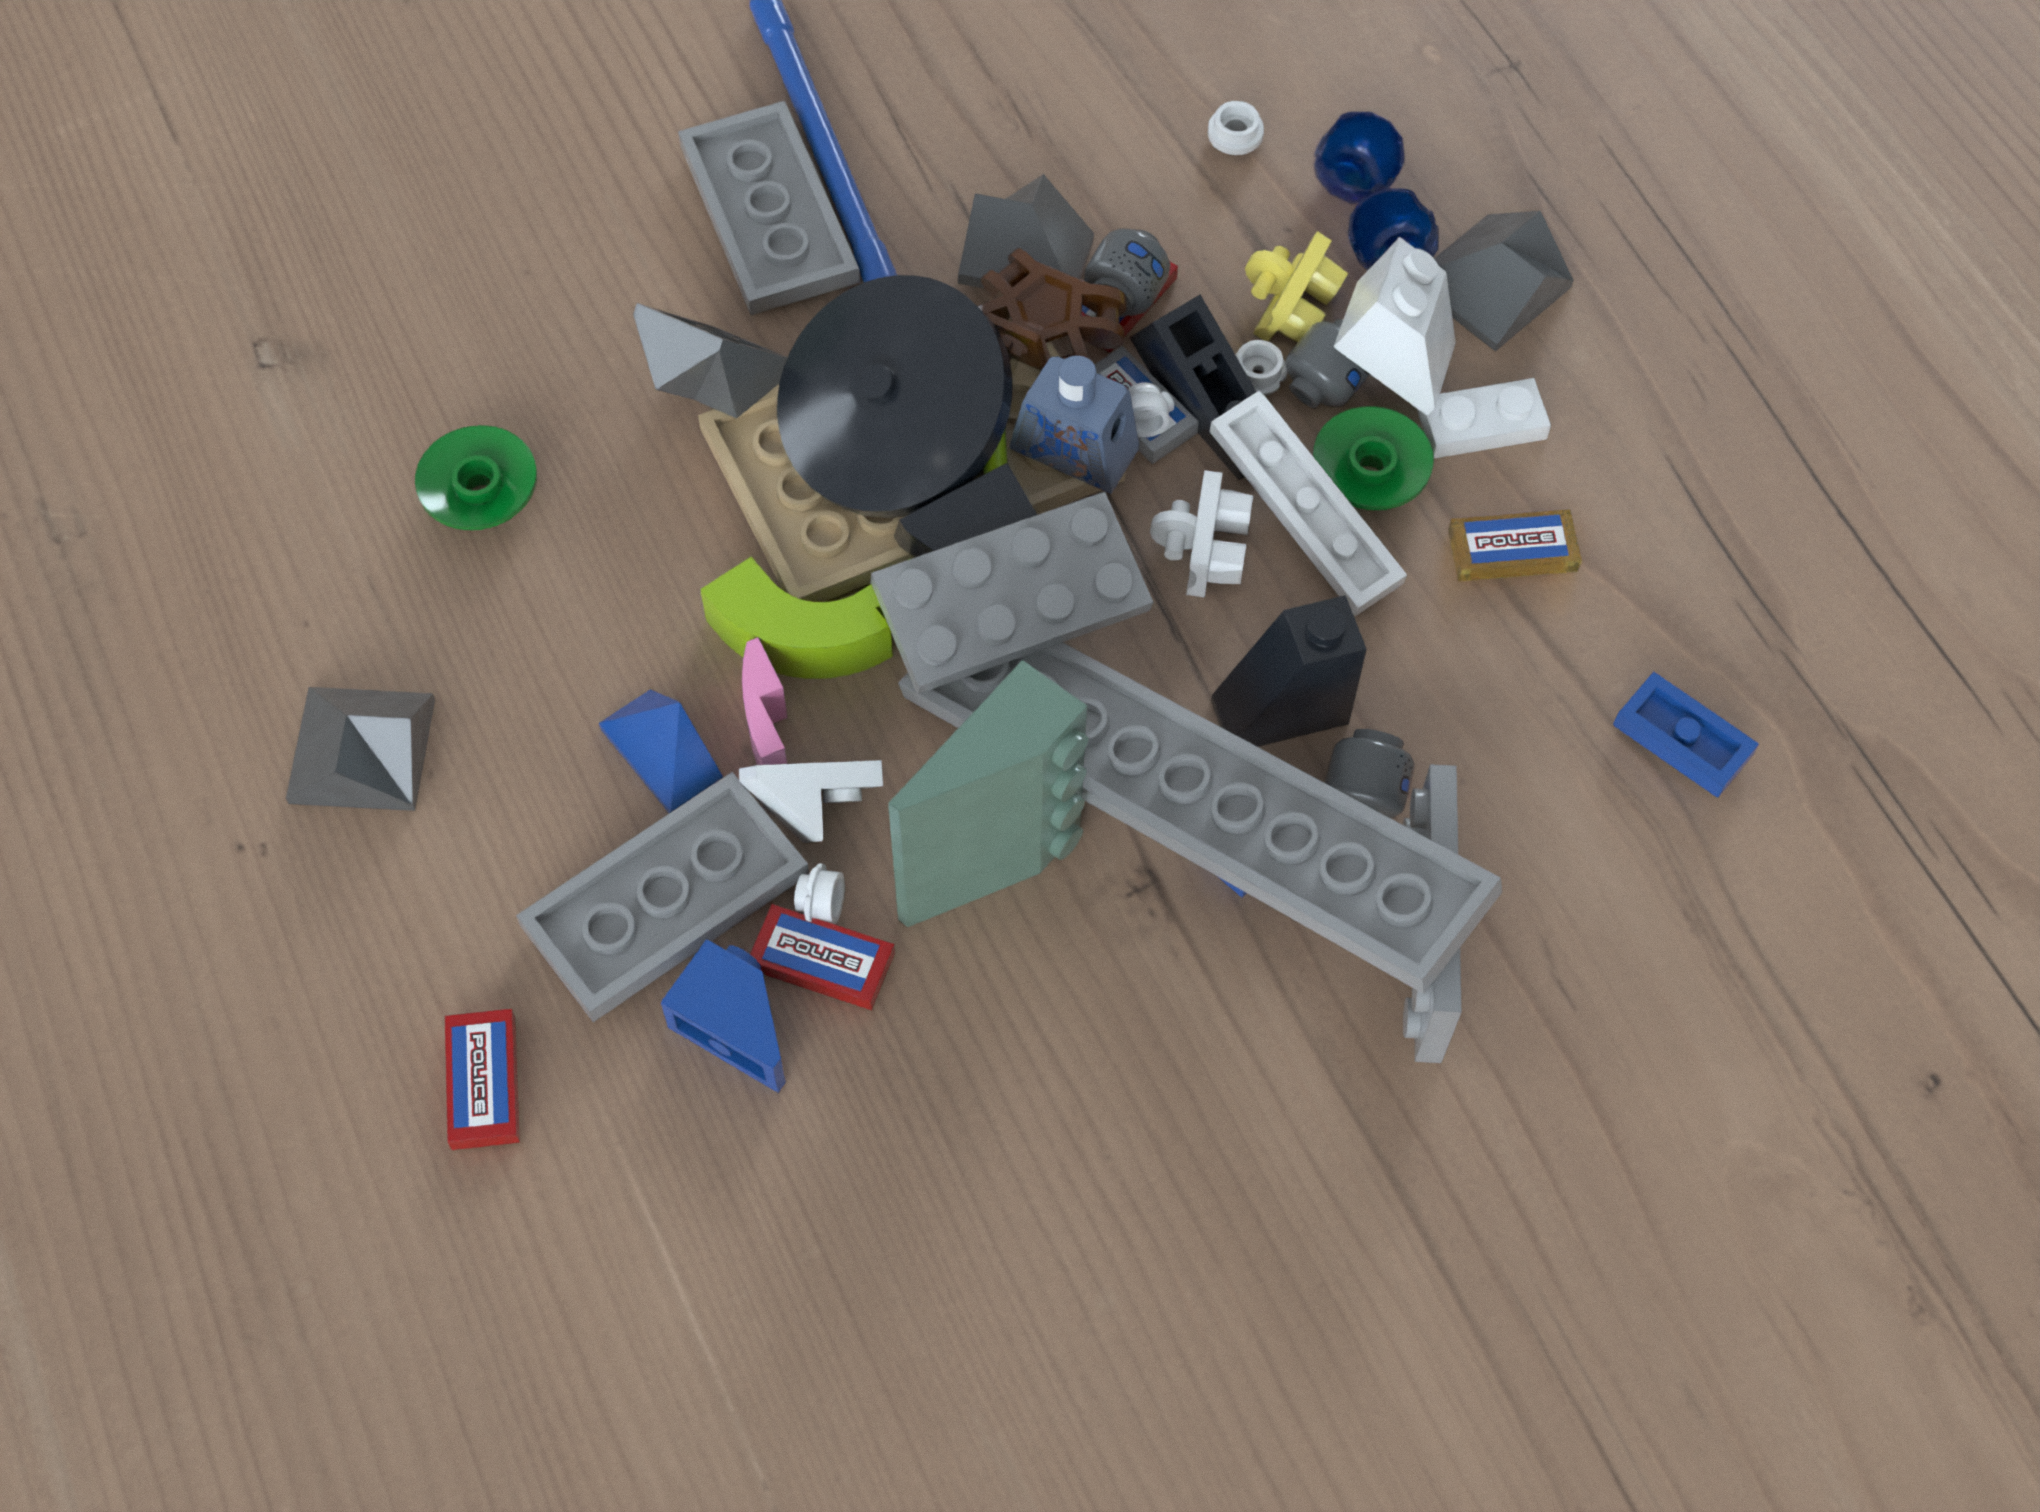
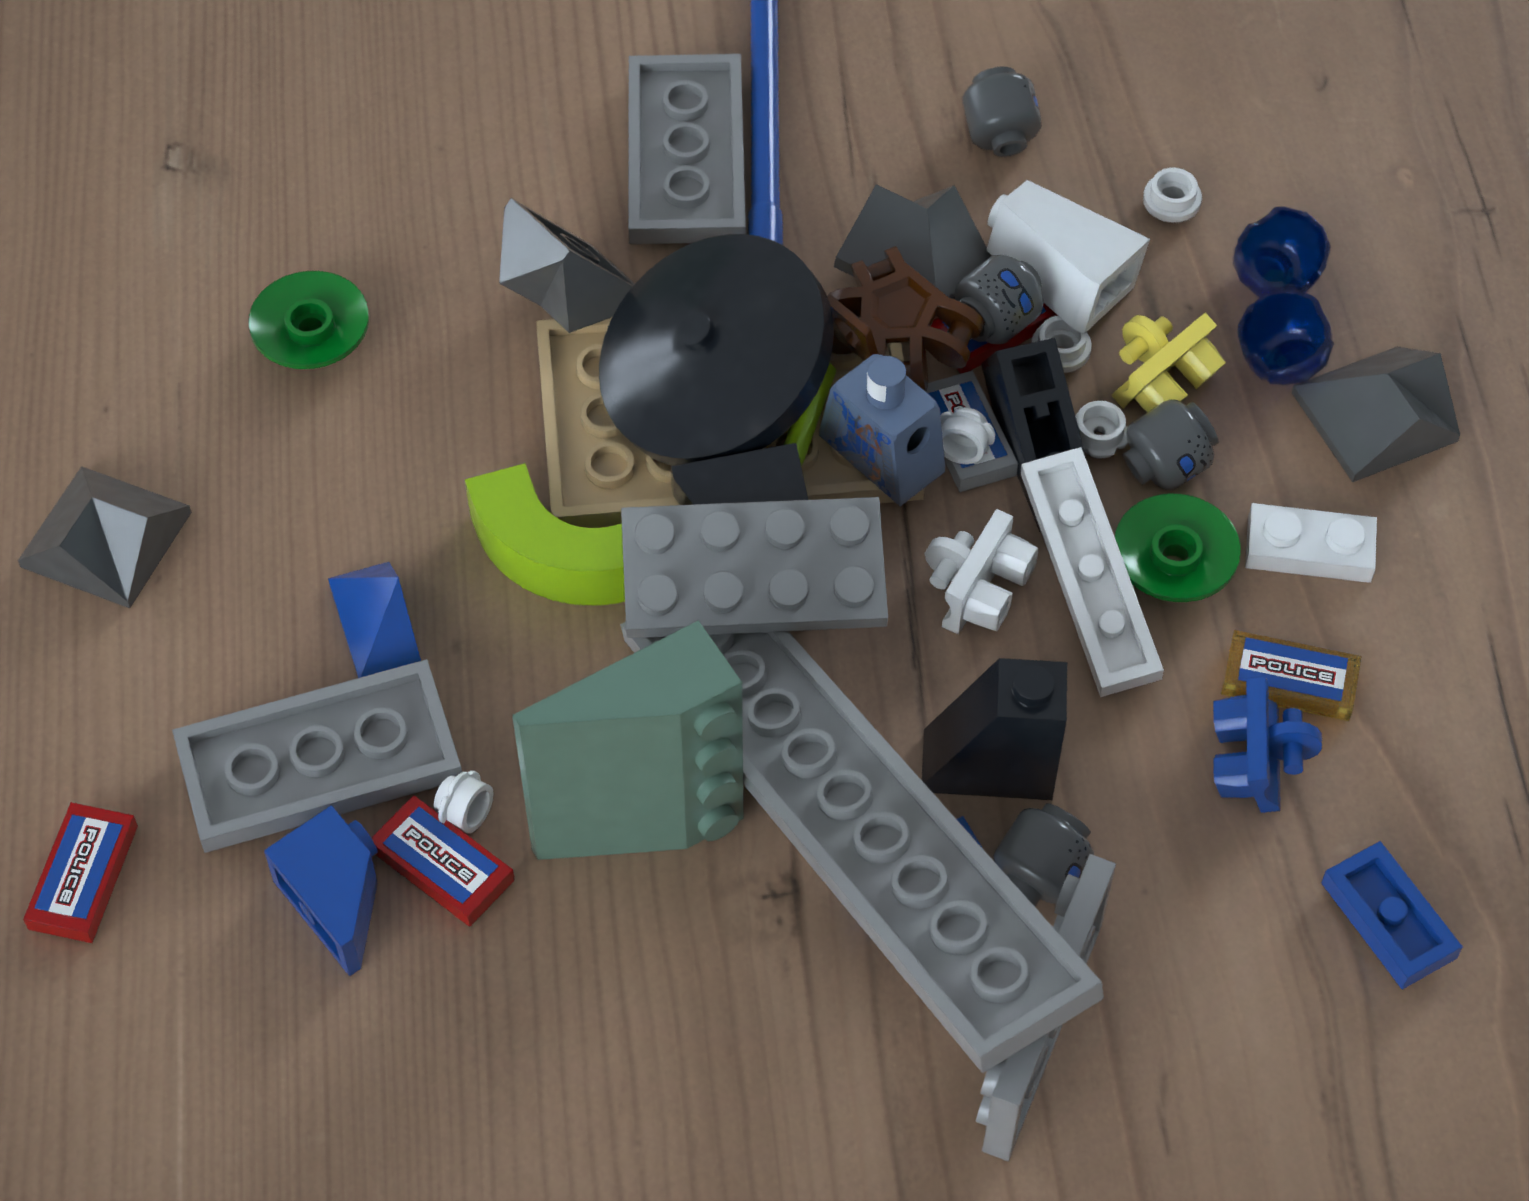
camera: 20 degrees right, 5 degrees down
(763, 704) = (479, 608): bright pink slope -> none
(795, 790) = (474, 689): white slope -> none
(1051, 90) = (1002, 111): none -> dark grey head
(1176, 203) = (1078, 254): none -> white slope
(1187, 286) = (1077, 345): none -> white plate
(1402, 325) = (1253, 428): white slope -> none
(1519, 643) = (1257, 720): none -> blue hips

